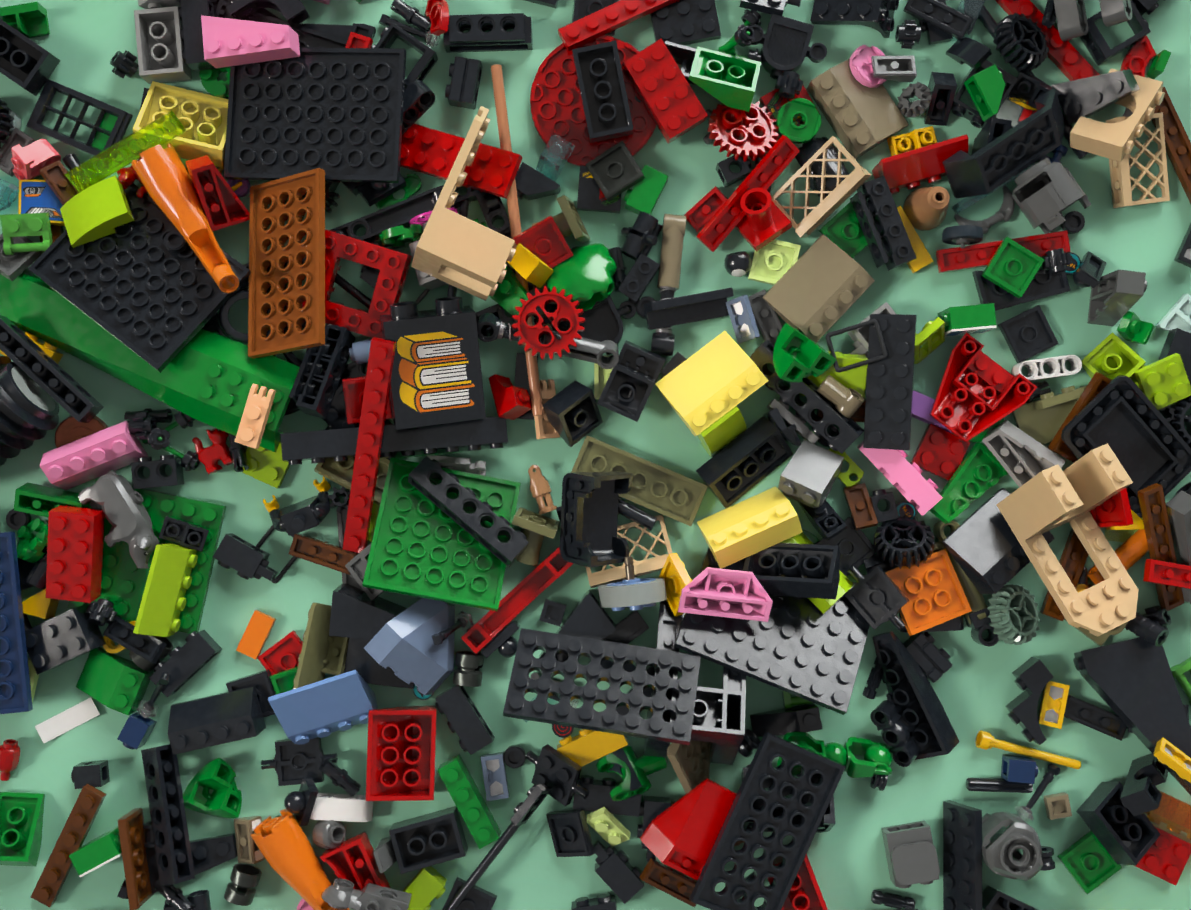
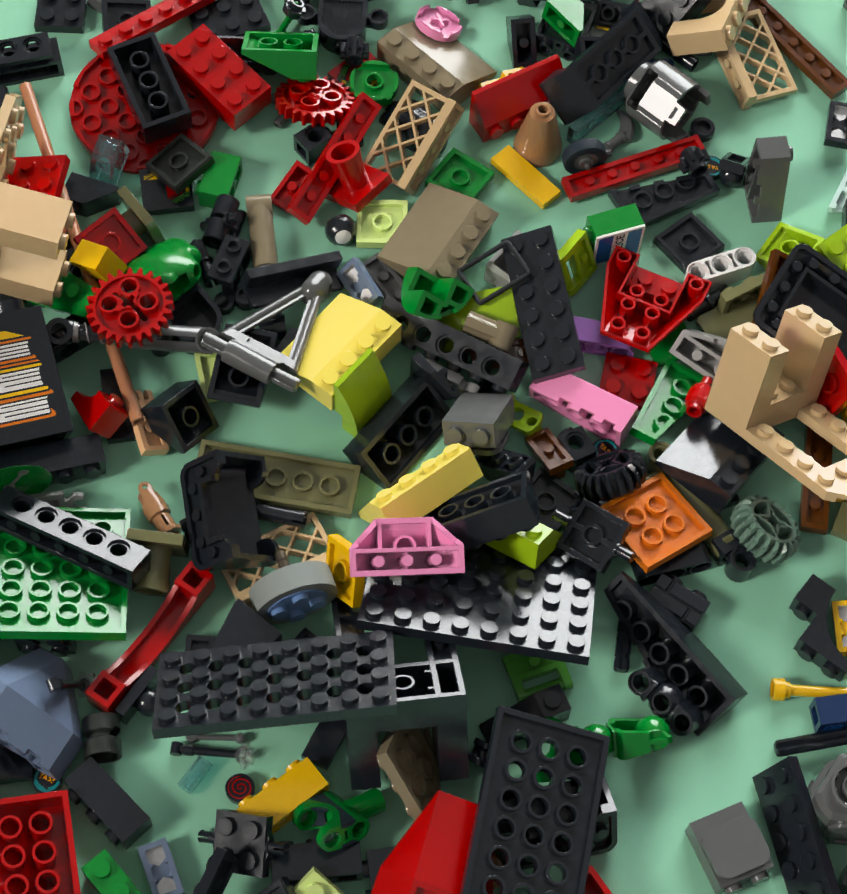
camera: 20 degrees left, 25 degrees down
(514, 756) = (183, 842): black tile -> none
(642, 384) = (261, 360): none -> dark grey piece
(879, 781) = (662, 765): black bush -> none
(882, 224) = (490, 144): black brick -> none
(894, 68) = (466, 20): dark grey slope -> none
(917, 107) = (499, 49): dark grey gear -> none
(995, 490) = (697, 397): none -> red plant
(1013, 267) = (648, 175): green plate -> none
(1134, 329) = (801, 214): green bracket -> none

